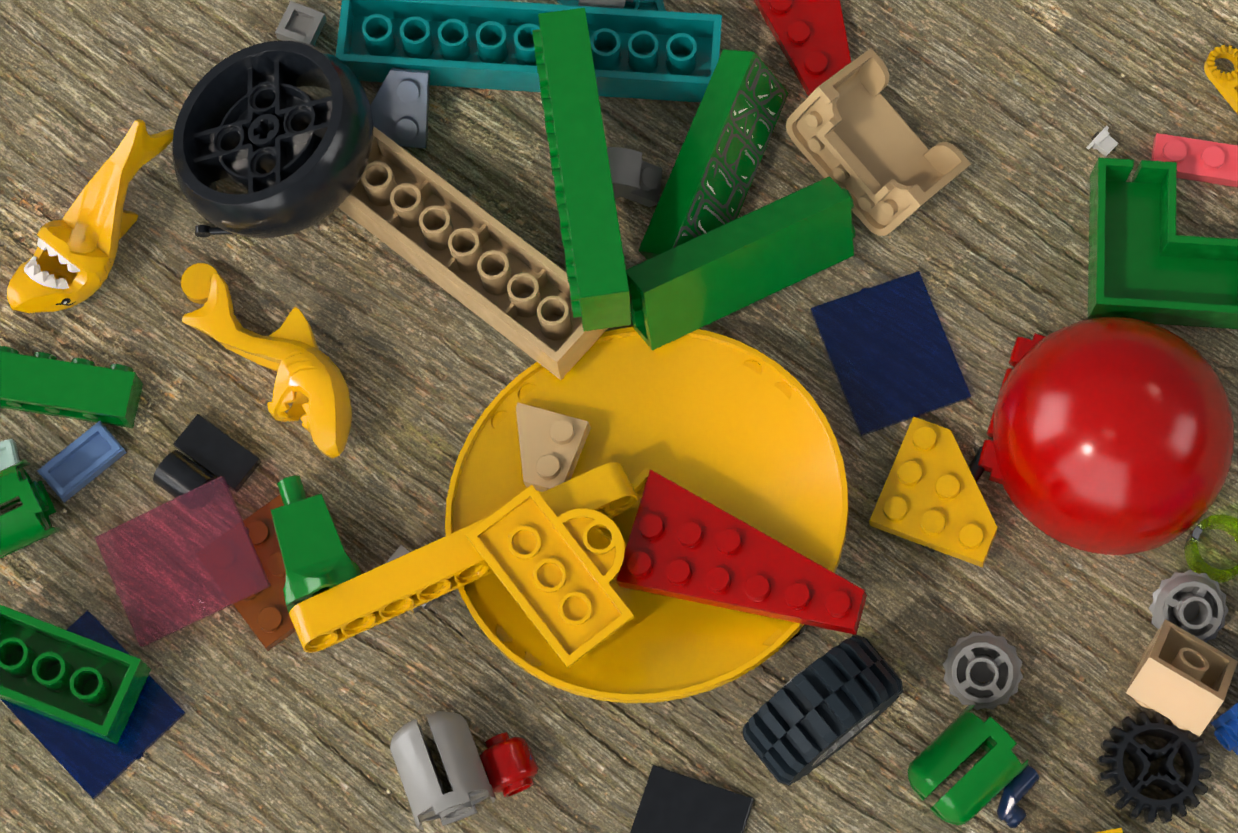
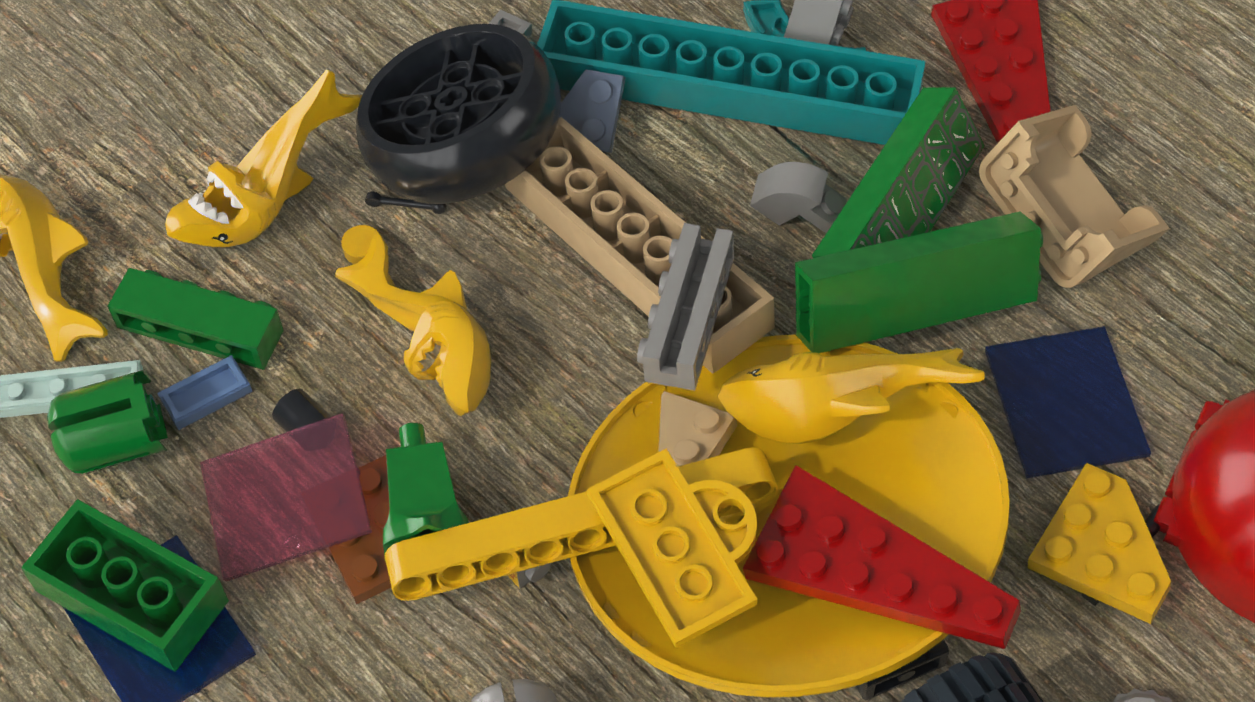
camera: 10 degrees right, 15 degrees down
(217, 452) = (339, 395): black tile -> none
(529, 330) = (687, 308): none -> light grey brick
(581, 171) = (766, 170): green brick -> none
(662, 401) = (821, 395): none -> yellow piece

